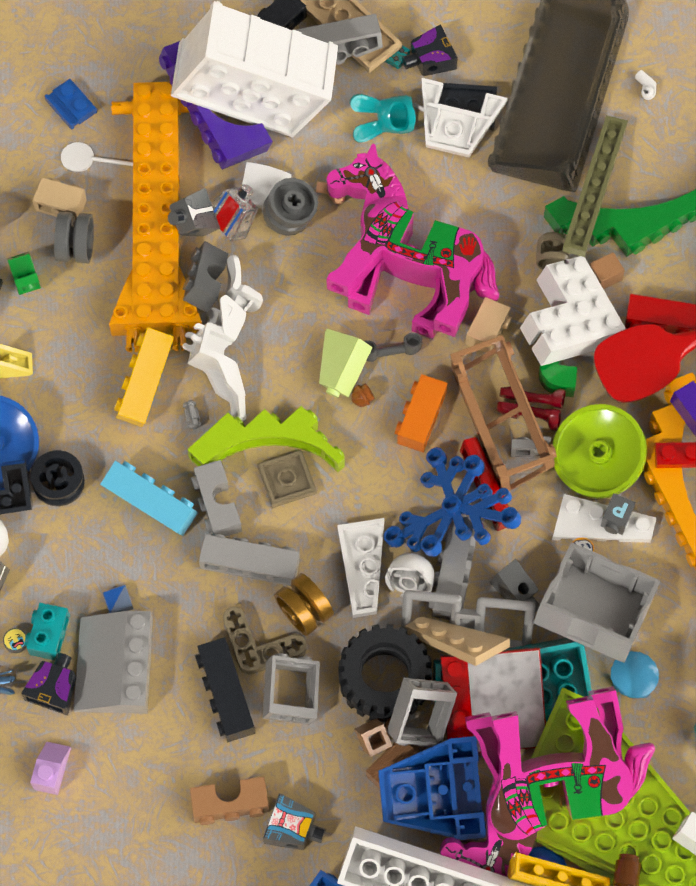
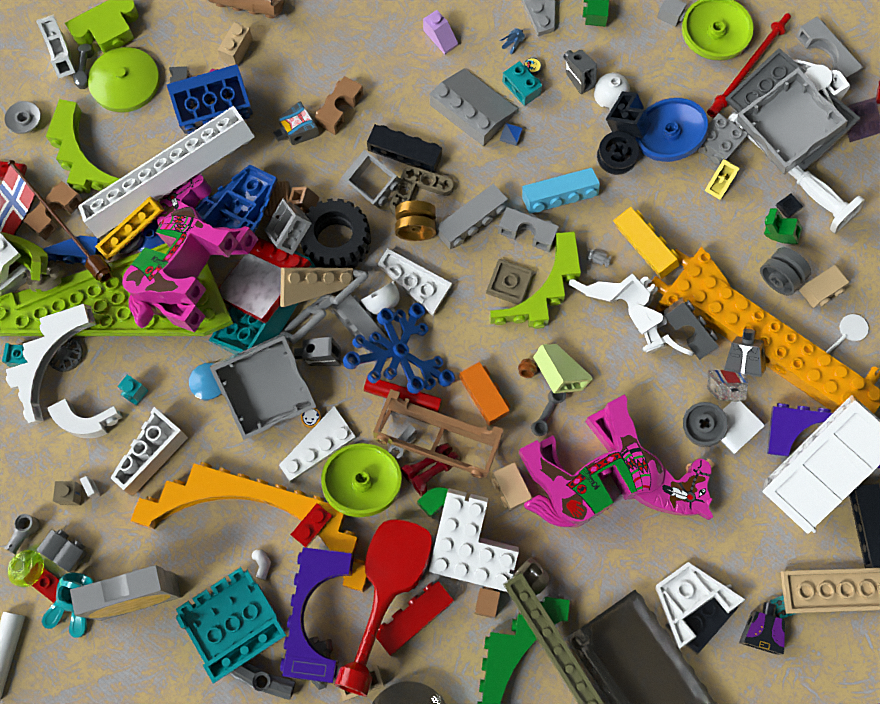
camera: 130 degrees right, 5 degrees up
(52, 685) = (486, 63): torso -> none
(353, 36) = (823, 560): light grey wedge -> none
(393, 114) = (728, 556): teal piece -> none
(617, 514) = (308, 450): dark grey brick -> none

